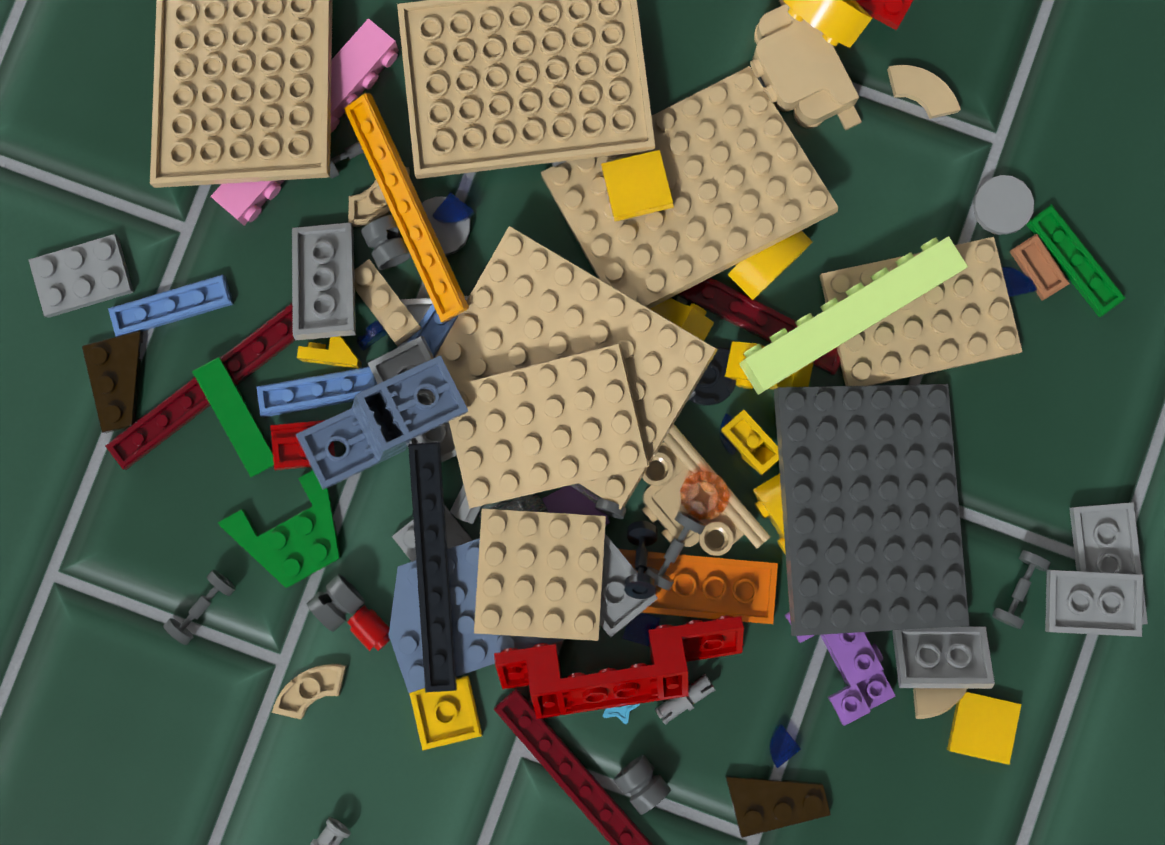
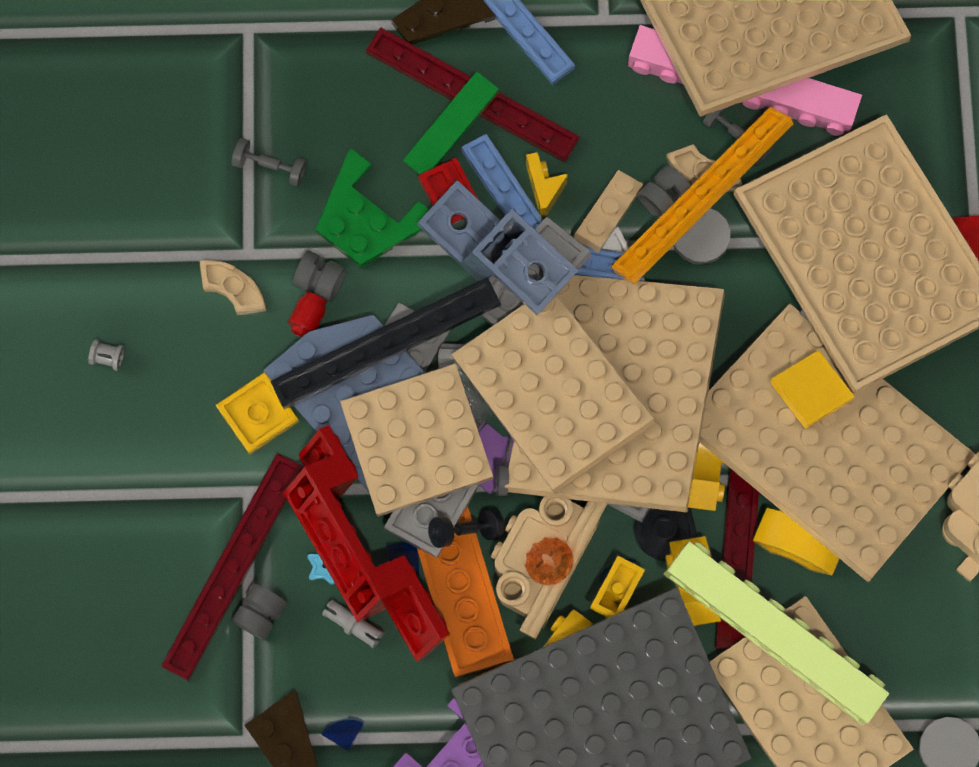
camera: 70 degrees right, 10 degrees down
(323, 281) = (605, 150): light grey plate -> none
(374, 333) = (575, 214): clear blue tile -> none
(452, 211) = (718, 238): clear blue tile -> none
(674, 549) = (517, 556): dark grey wheel -> none

